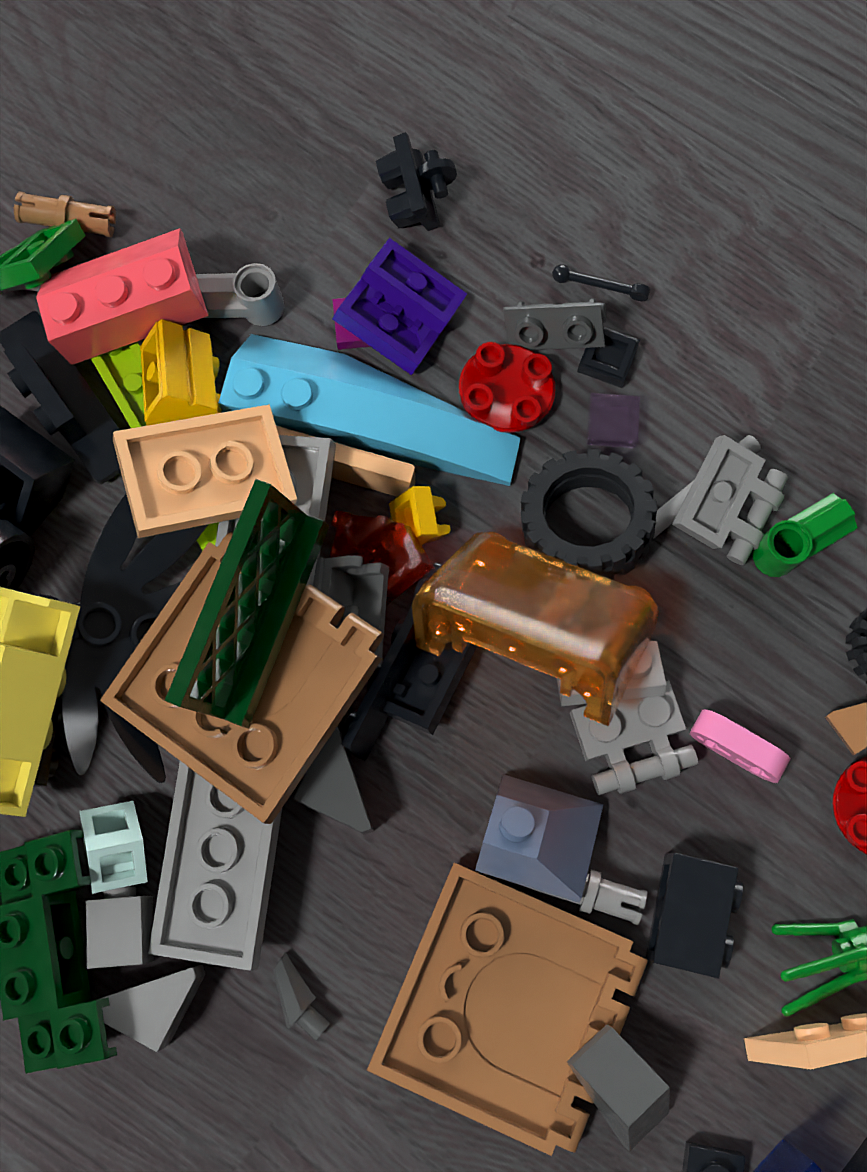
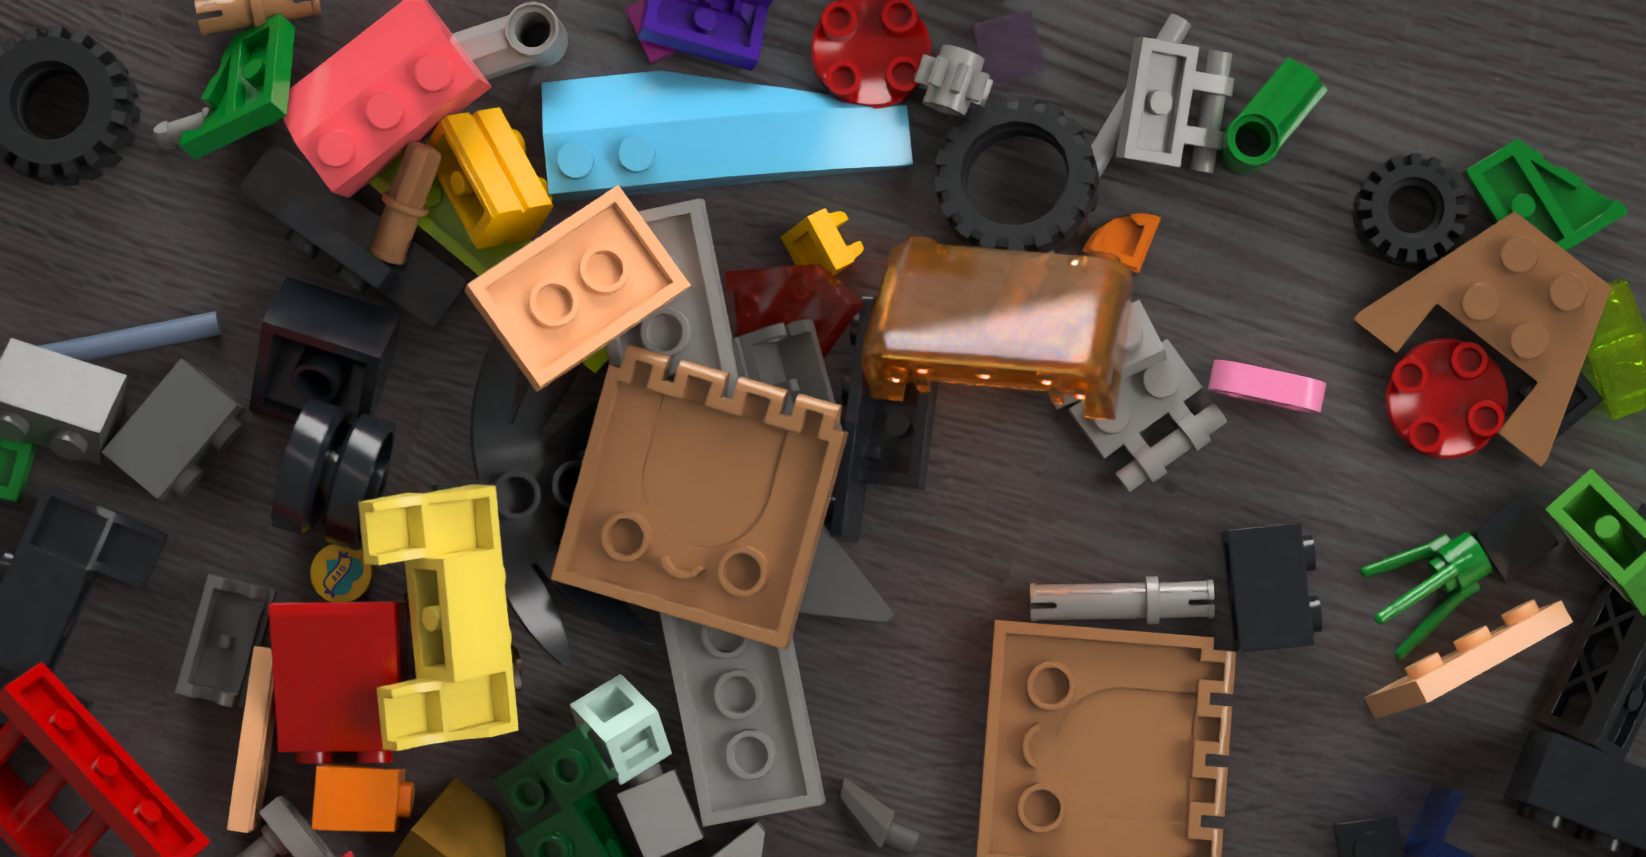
camera: 20 degrees left, 10 degrees up
(108, 377) = (405, 203): none -> medium nougat axle
(249, 608) = (699, 432): dark green fence -> none
(367, 468) = (735, 208): light nougat tile -> none
(540, 838) = (1079, 561): sand blue slope -> none
(563, 426) = (953, 81): none -> light grey gear
(621, 1086) = (1247, 789): dark grey slope -> none
(664, 589) = (1125, 237): none -> orange tile

